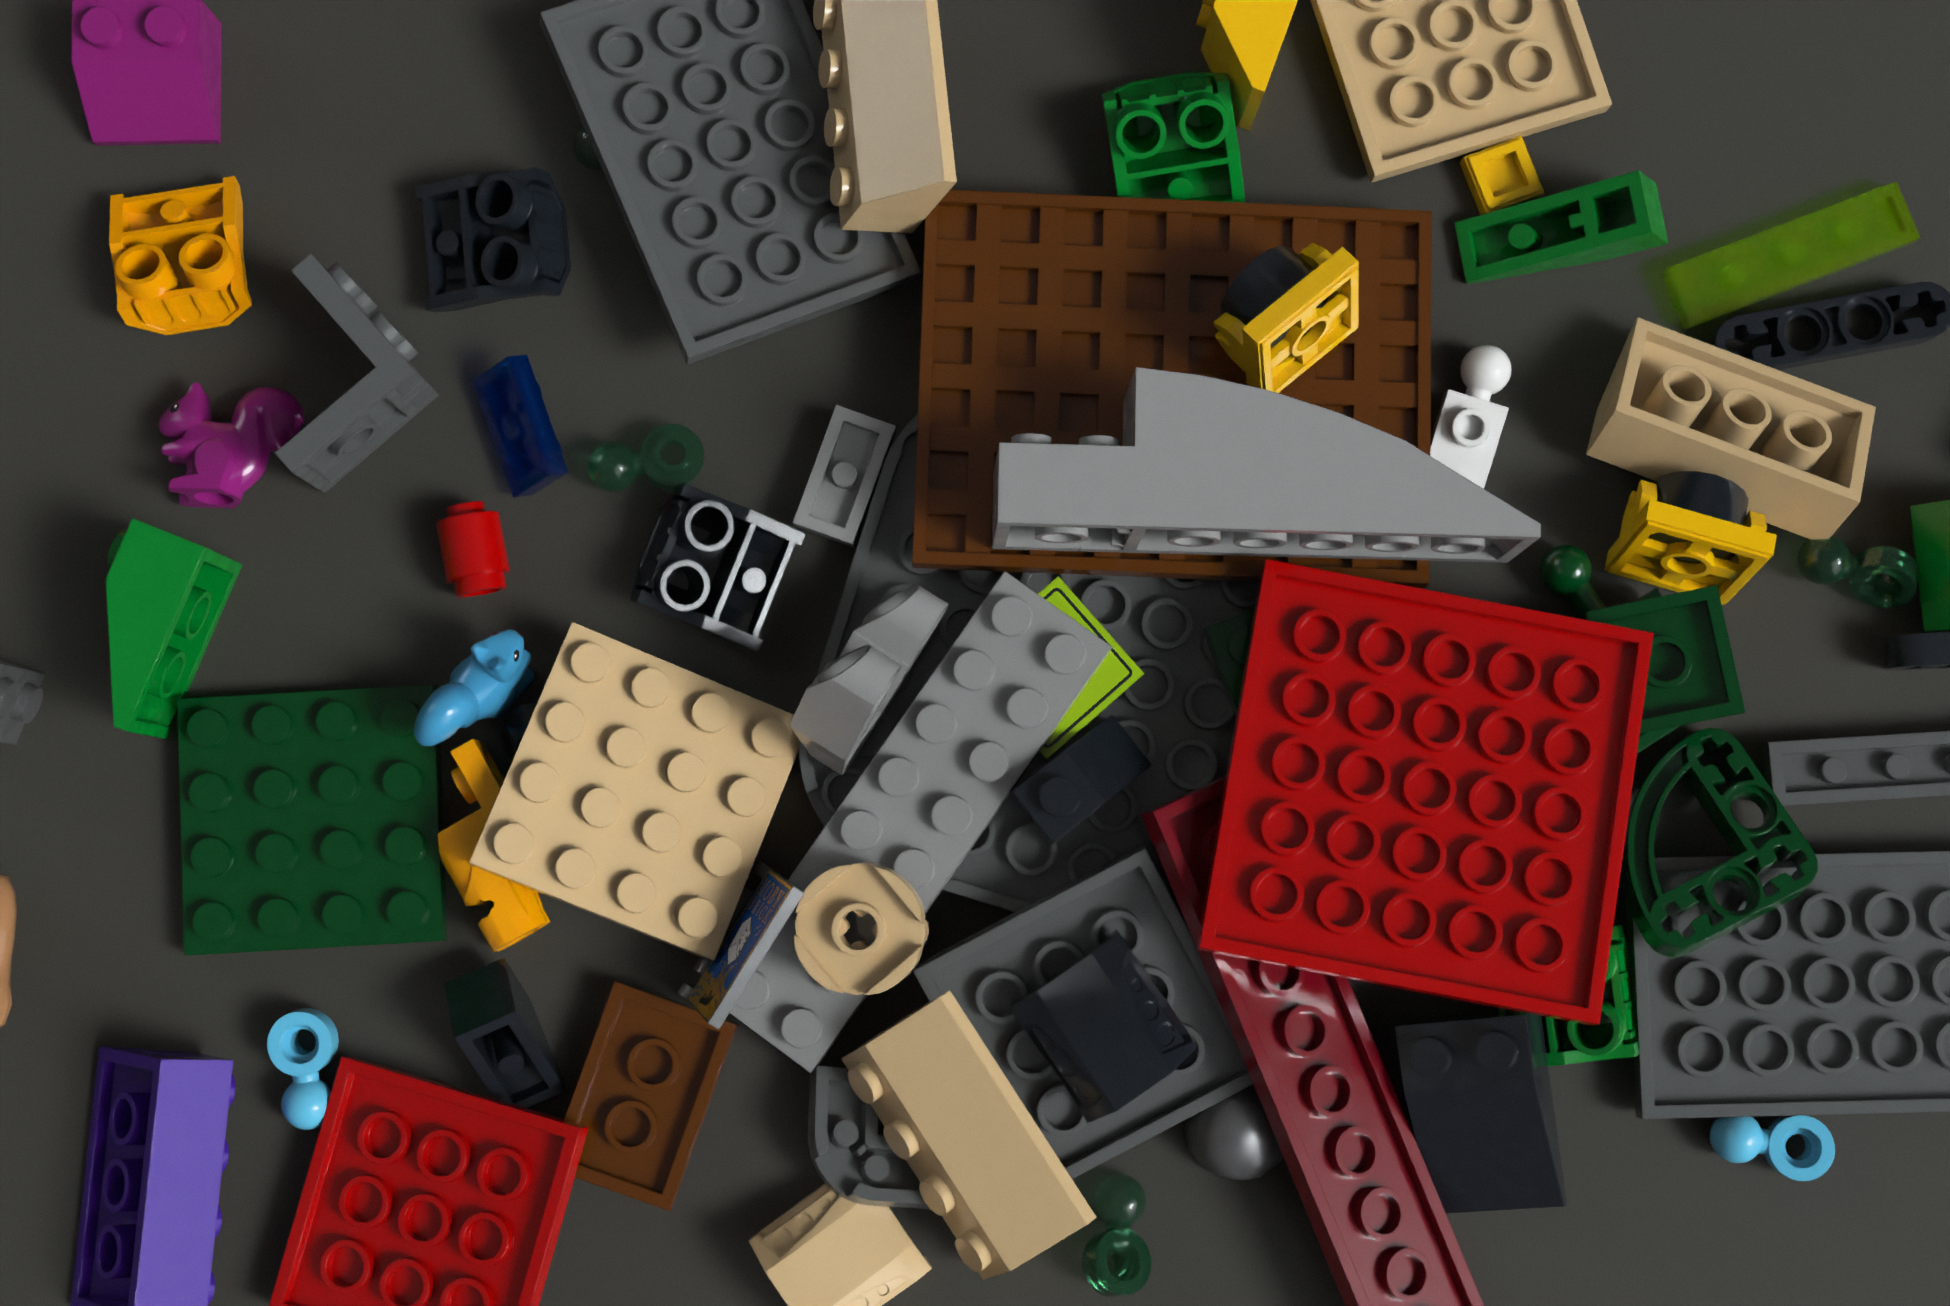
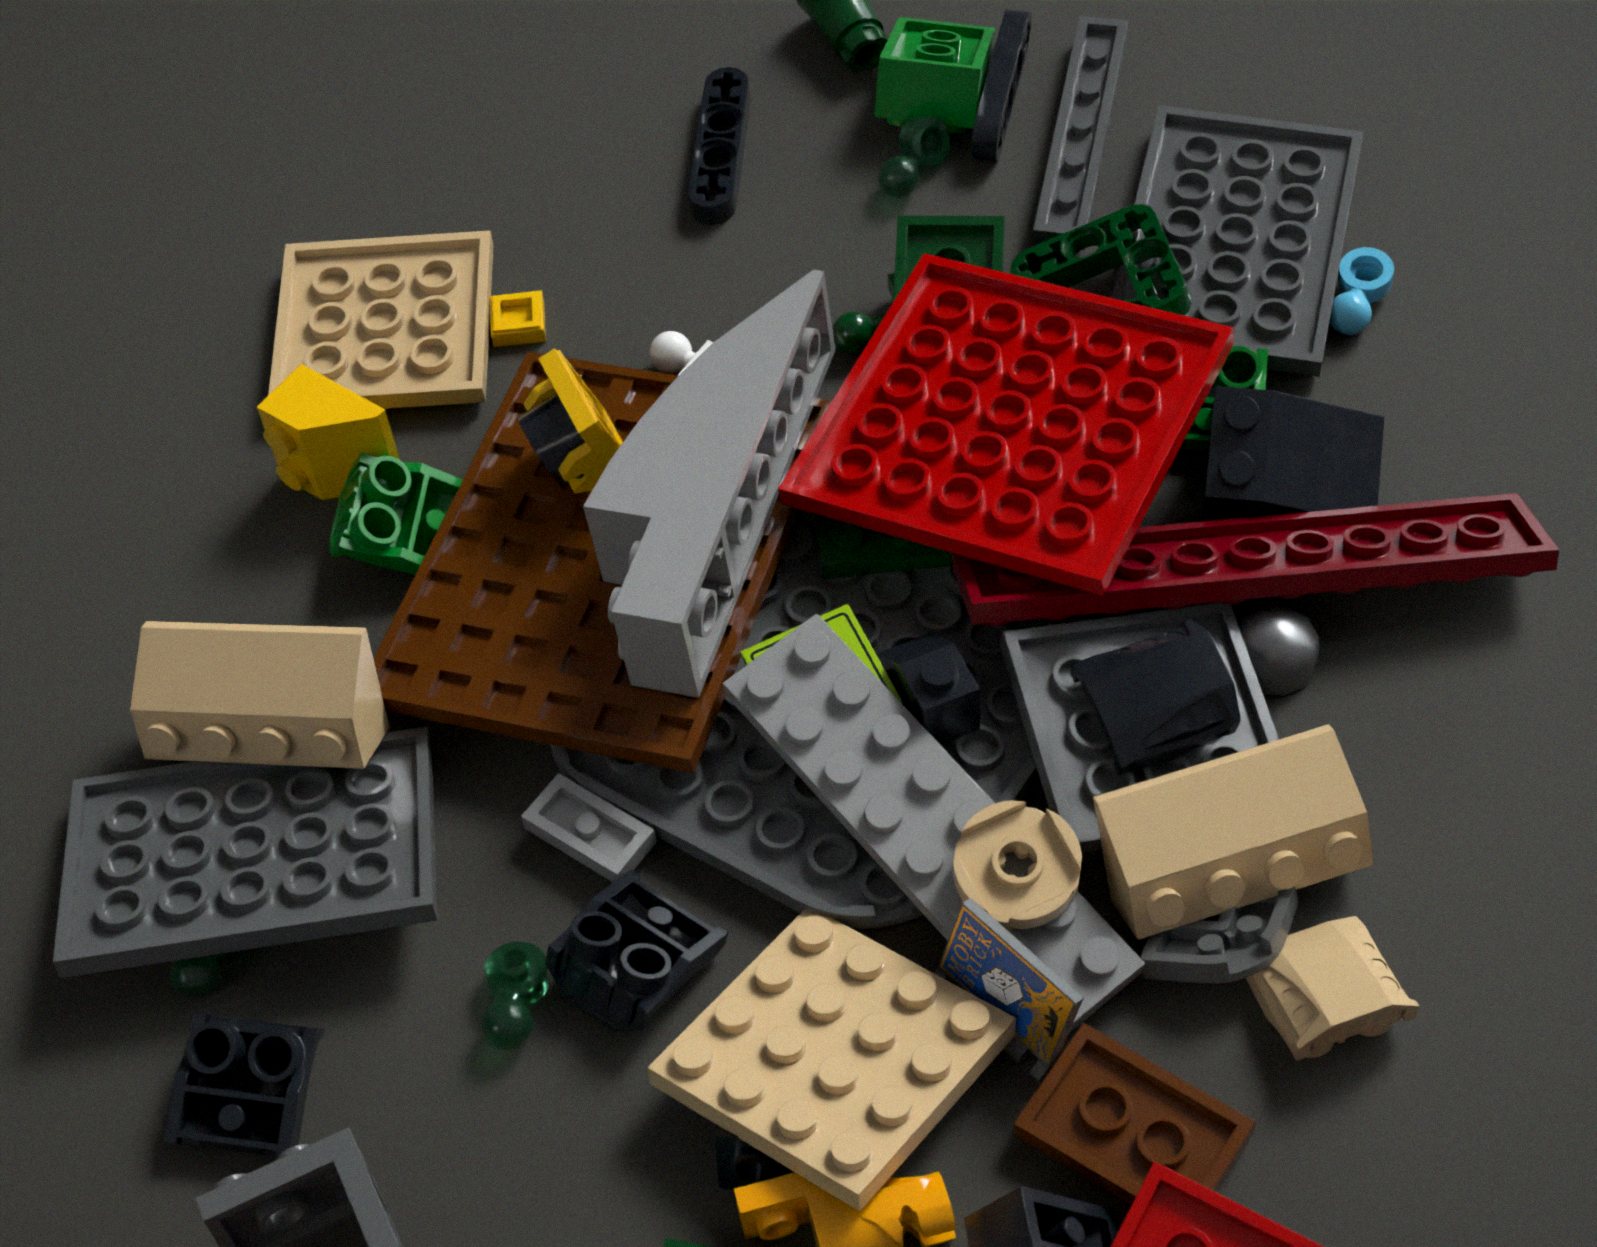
camera: 65 degrees left, 30 degrees down
(473, 549) = (543, 1166): red brick -> none
(478, 688) = (677, 1176): dark azure animal -> none
(520, 426) = (437, 1095): clear blue plate -> none
(859, 685) = (788, 807): light grey connector -> none
(1120, 1204) = (1376, 758): clear green plate -> none
(1563, 229) = (577, 276): green slope -> none
(1691, 535) = (851, 235): yellow piece -> none
(1721, 414) = (780, 206): tan slope -> none
(1790, 255) = (653, 160): clear neon green tile -> none

